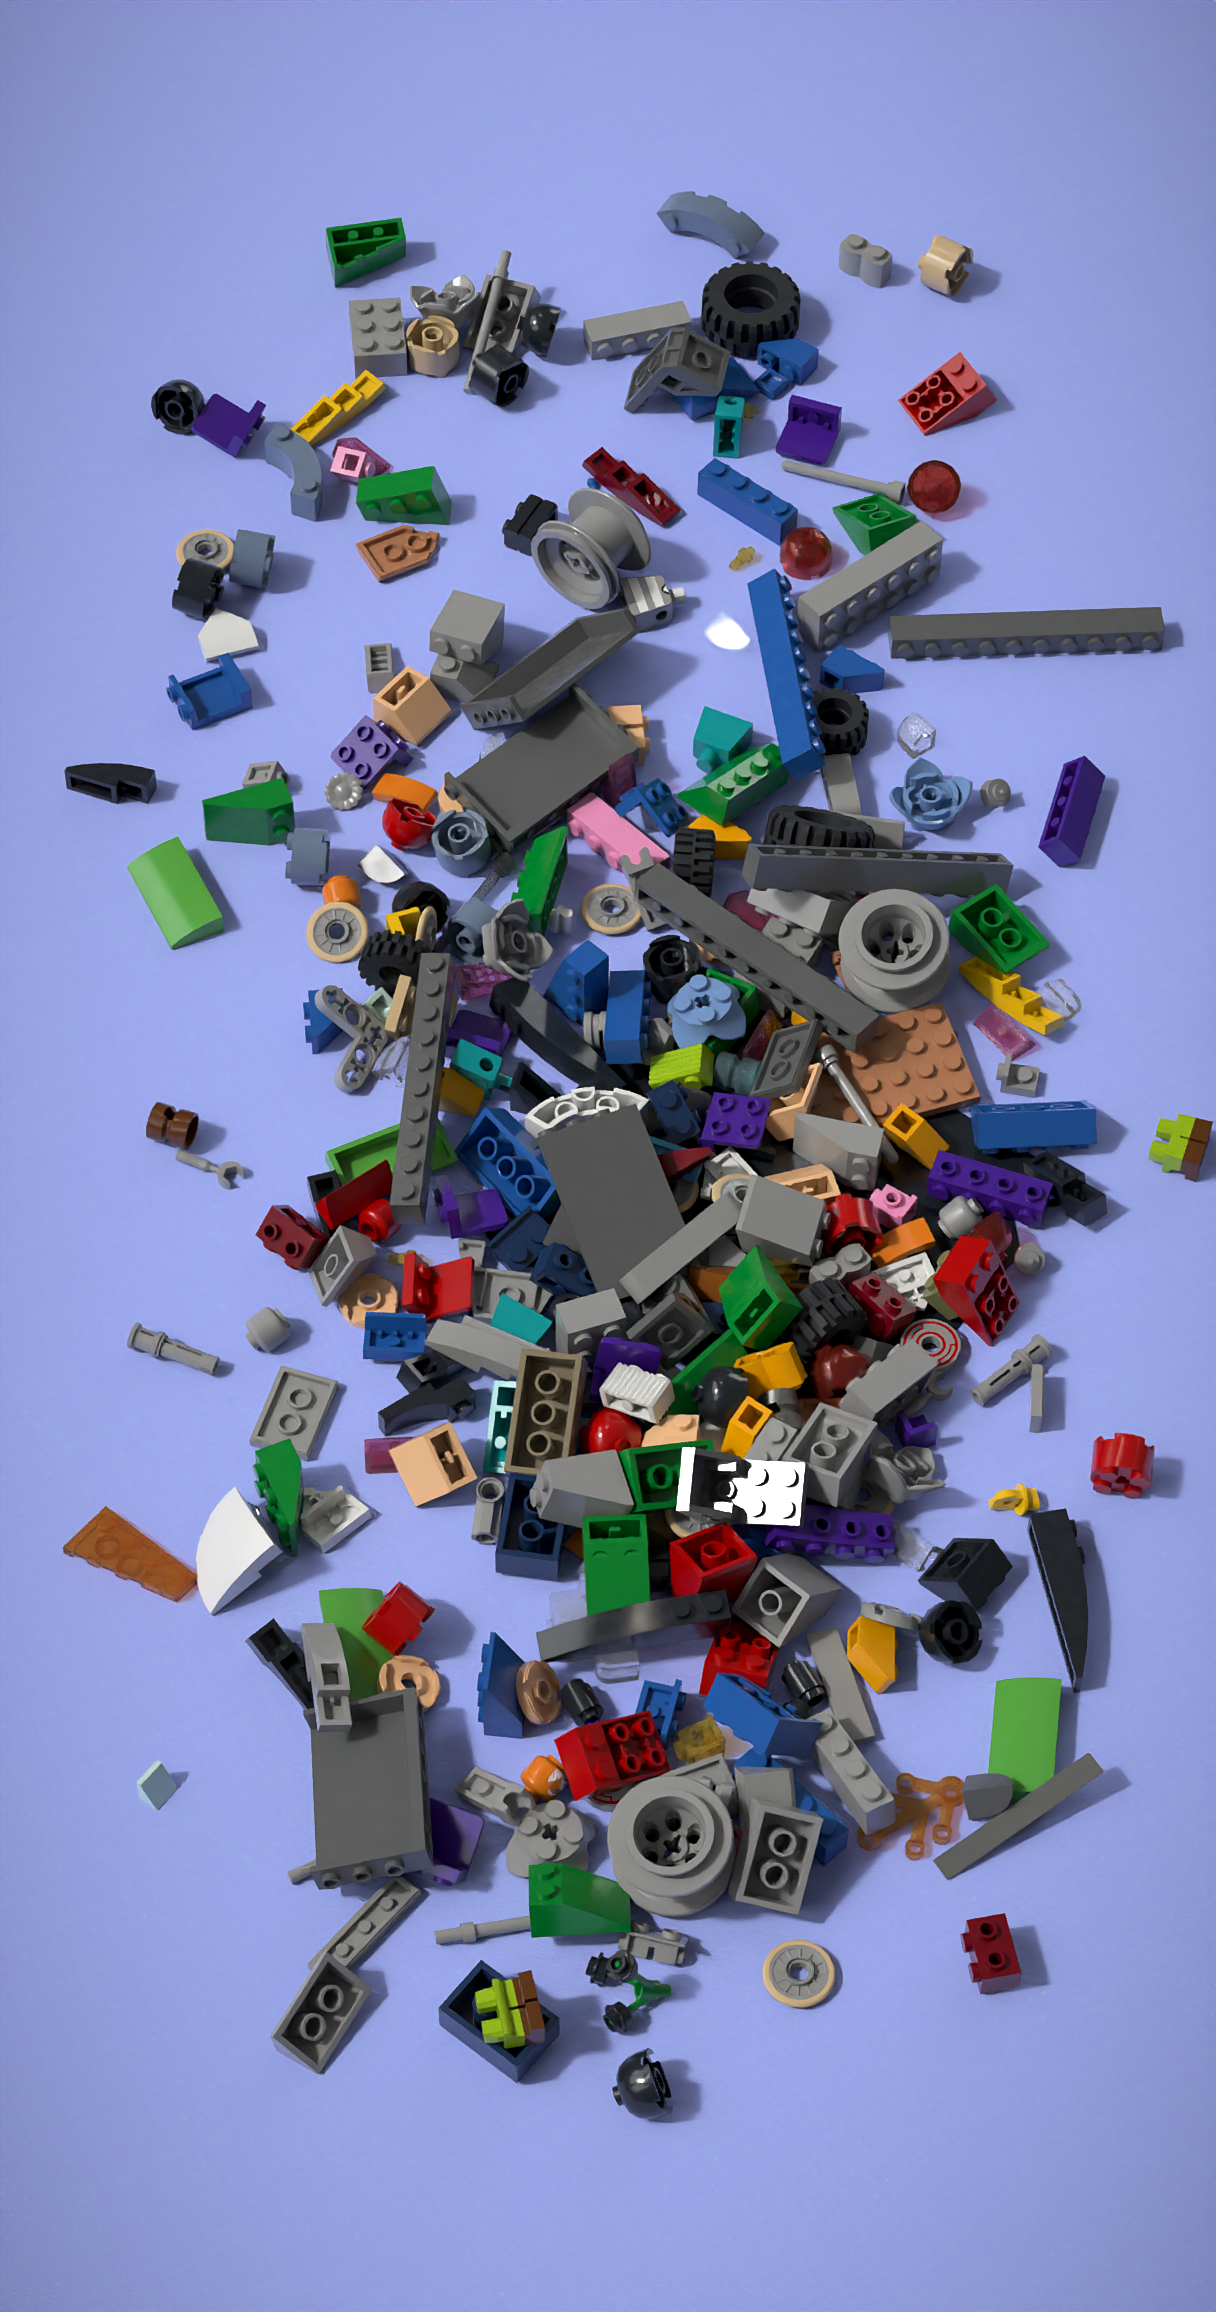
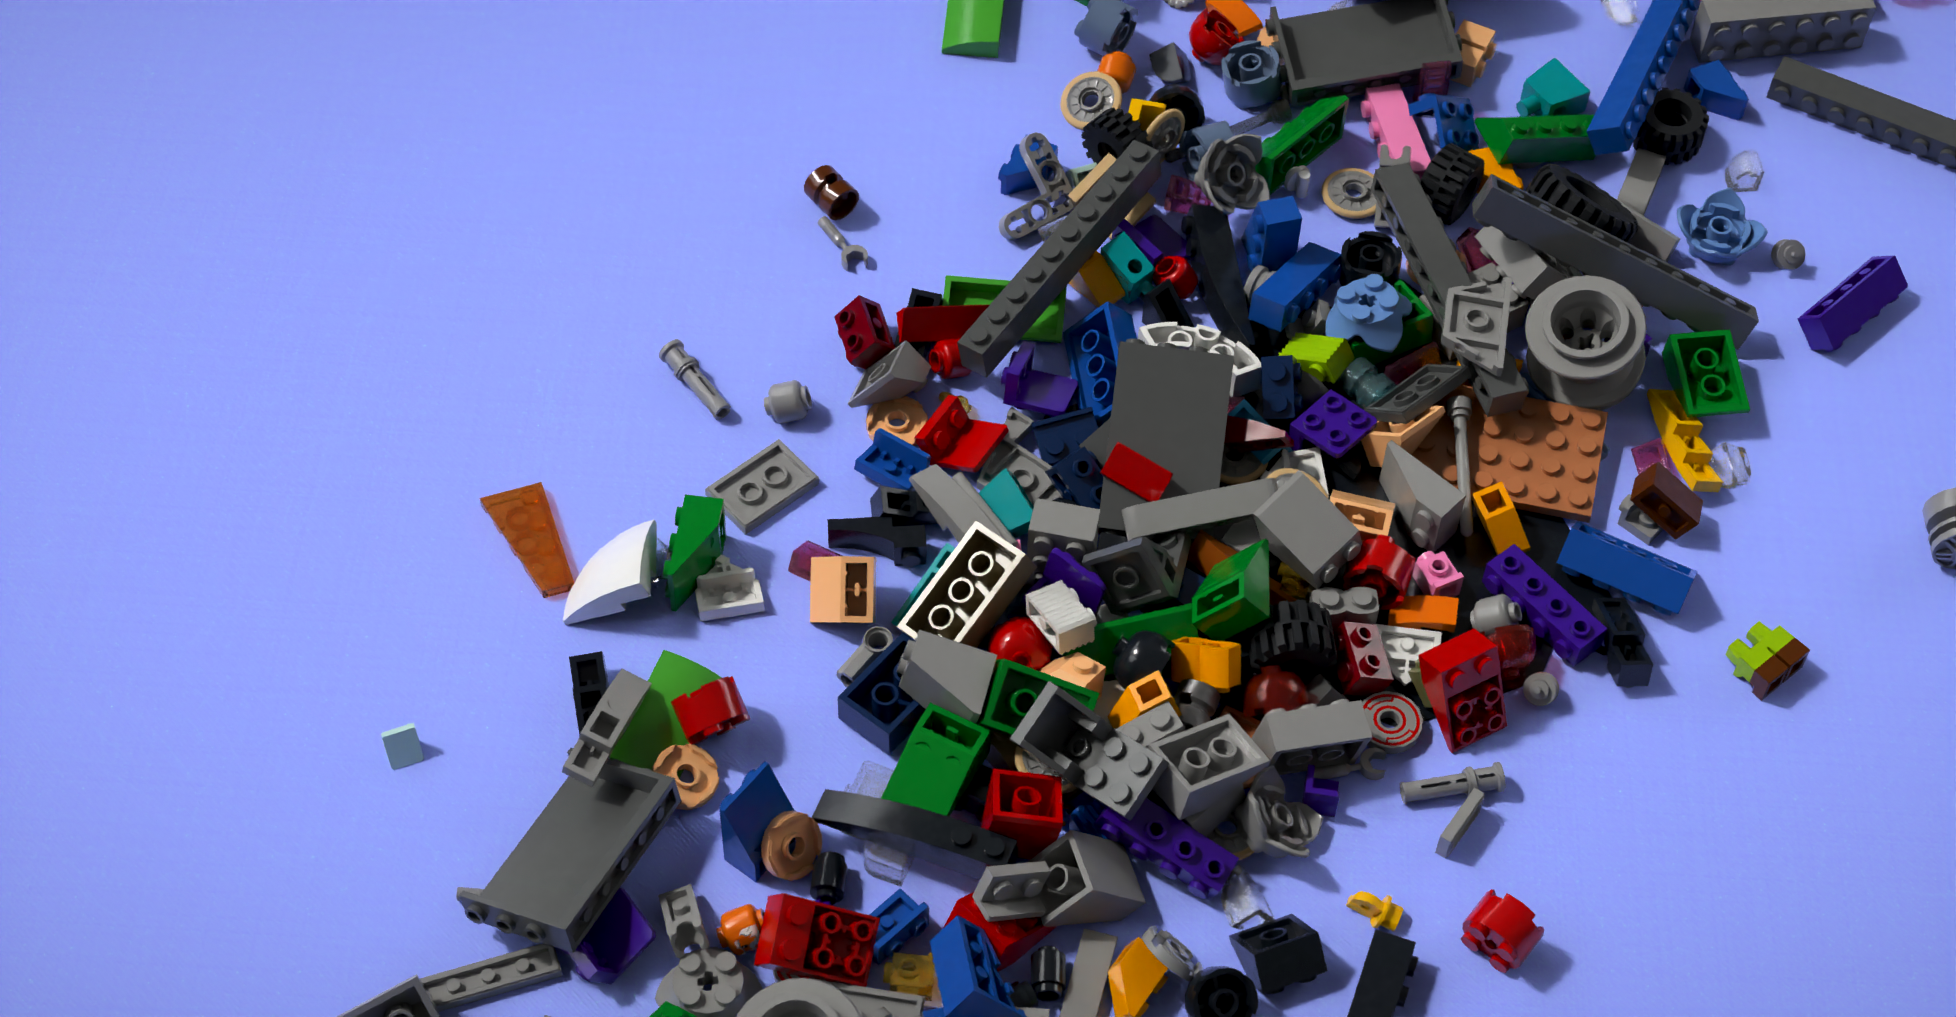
camera: 30 degrees right, 0 degrees up
(516, 1051) = (1179, 272): none -> red head
(613, 1243) = (1136, 473): none -> red slope
(743, 1633) = (1012, 891): none -> light grey bracket
(807, 977) = (1478, 322): none -> light grey wing
(1032, 1053) = (1666, 500): none -> reddish brown panel

